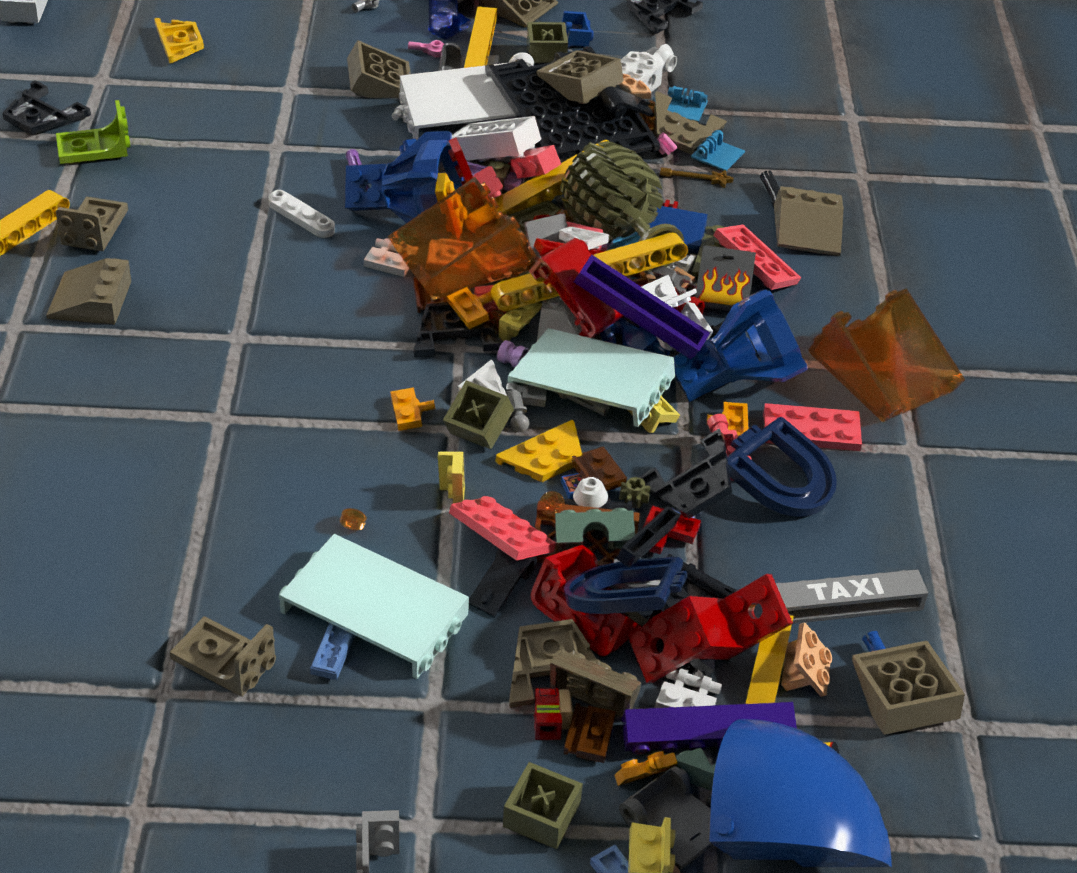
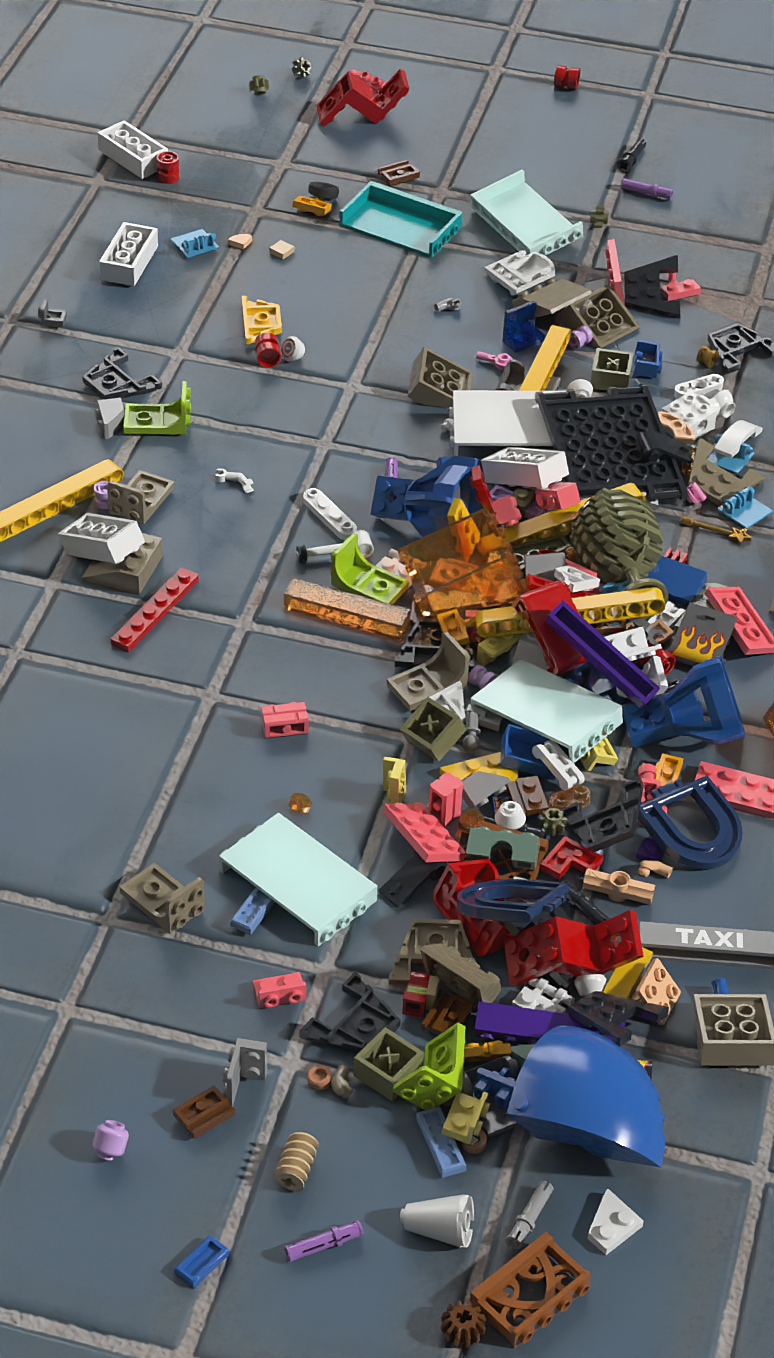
camera: 15 degrees right, 0 degrees up
(41, 147) = (110, 416): none -> light grey slope
(50, 226) = (101, 495): none -> lavender wheel
(61, 269) = (101, 538): none -> white brick
(135, 338) = (154, 609): none -> plate
(177, 191) = (222, 476): none -> white arm
(194, 64) = (267, 350): none -> red wheel
(220, 61) = (292, 349): none -> white cone
(311, 431) = (284, 719): none -> coral brick
(341, 237) = (364, 545): none -> white piece
(347, 305) = (347, 609): none -> clear orange brick
(356, 273) = (359, 577): none -> lime bracket
(388, 739) = (279, 990): none -> coral bracket
(408, 408) = (376, 713): light orange plate -> none
(463, 837) = (319, 1077): none -> nougat tile
(468, 353) = (441, 671): none -> dark tan bracket
(490, 840) = (340, 1084): none -> dark tan arm
(495, 765) = (359, 1024): none -> black wing
(505, 17) = (580, 336): none -> lavender wheel
(515, 486) = (446, 798): none -> coral brick
(546, 467) = (481, 785): none -> light grey slope
(582, 75) = (627, 414): dark tan slope -> none
(588, 422) = (518, 754): none -> blue container
(605, 799) = (441, 1073): none -> lime bracket
(624, 430) = (559, 764): none -> white plate
(633, 20) = (707, 356): none -> pearl gold wheel
(638, 44) = (708, 384): none -> white beam
(643, 463) = (571, 796): none -> clear orange plate
(648, 537) = (547, 861): black piece -> none
(675, 805) = (496, 1084): none -> blue hips
(687, 88) = (735, 435): none -> white slope
(727, 550) = (618, 886): none -> light nougat piece
(736, 667) = (589, 983): none -> white cone
(745, 506) = (649, 850): none -> dark purple plate
(759, 522) = (655, 866): none -> light nougat arm
(774, 692) = (609, 1011): none -> black wing

